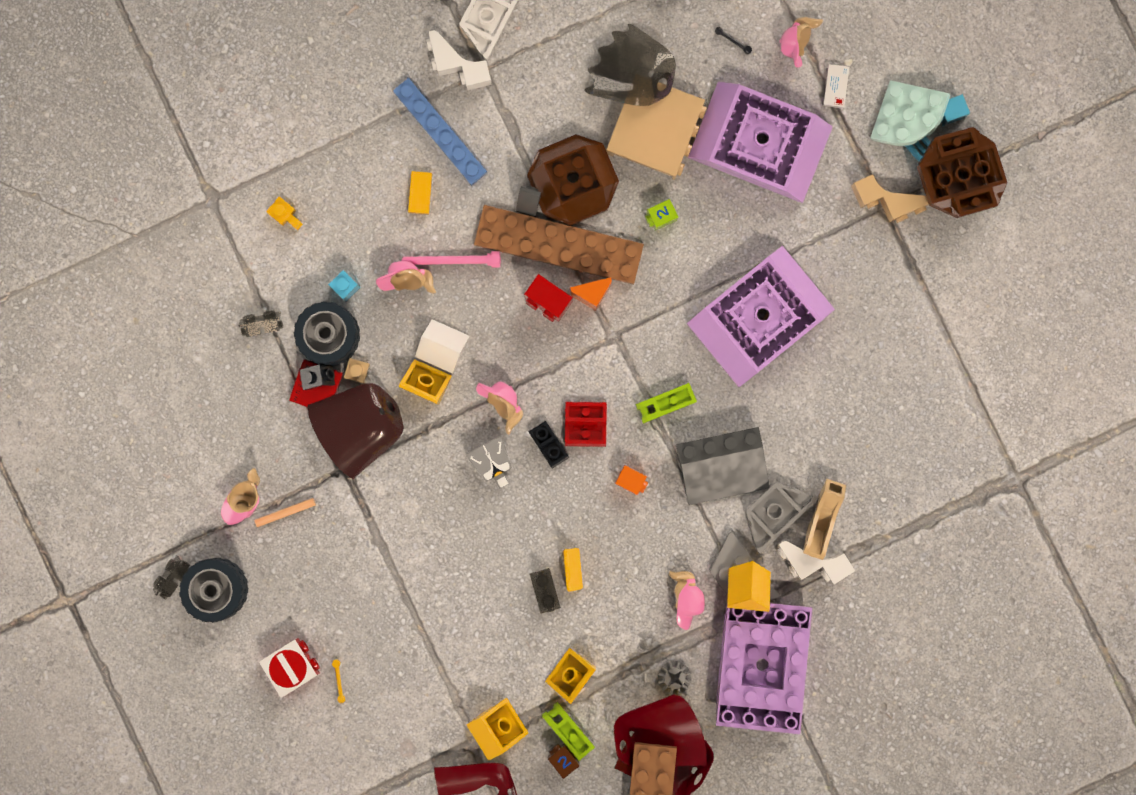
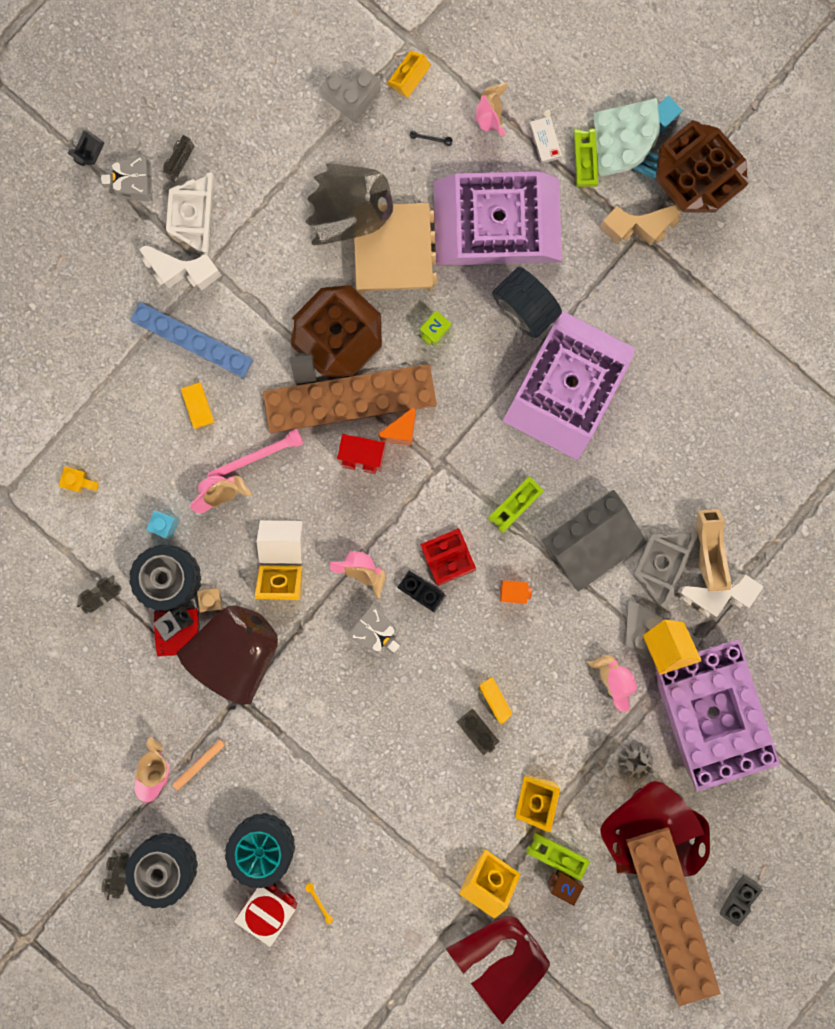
camera: 25 degrees left, 0 degrees up
(307, 610) = (260, 850): none -> wheel
(753, 227) = (527, 302): none -> black wheel
(864, 118) = (585, 158): none -> lime plate

